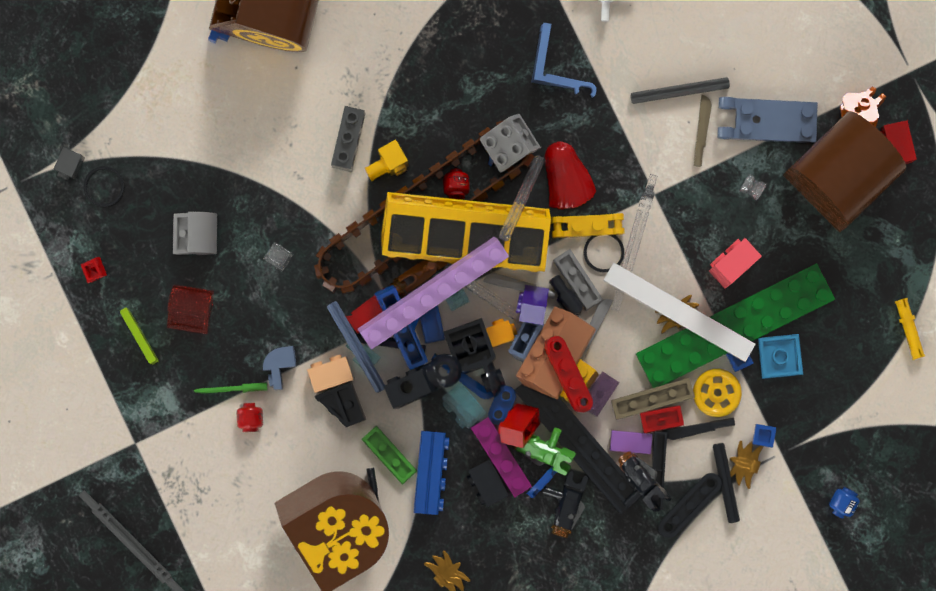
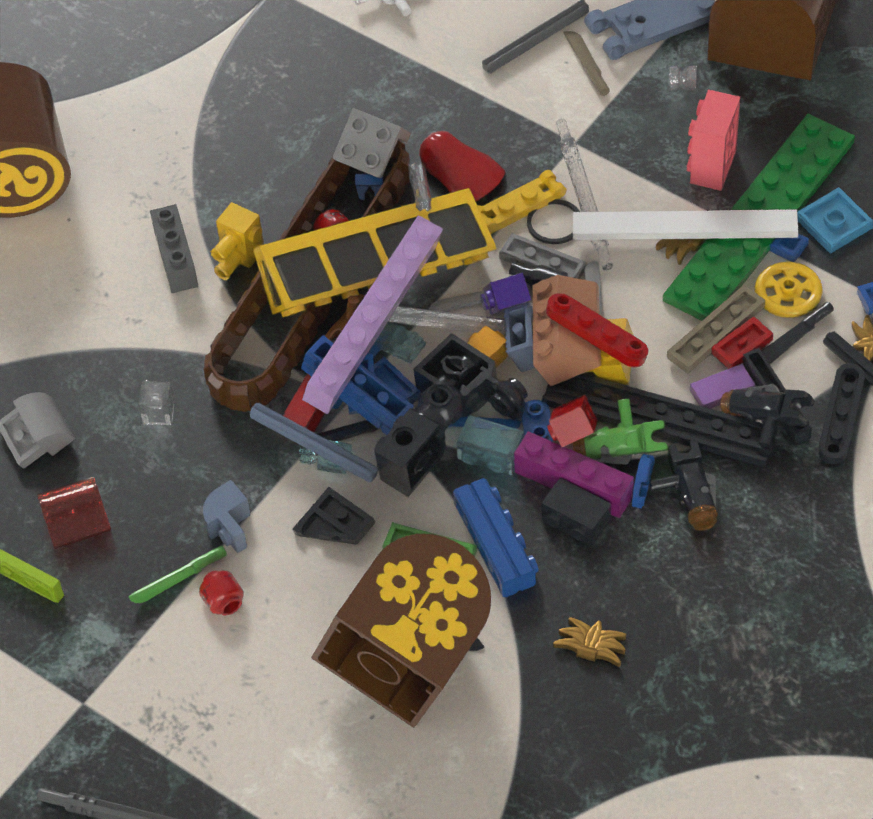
camera: 25 degrees left, 30 degrees down
(330, 374) = (297, 493): light nougat brick -> none
(549, 79) = (379, 89): medium blue hinge -> none
(601, 392) = (652, 334): clear purple brick -> none

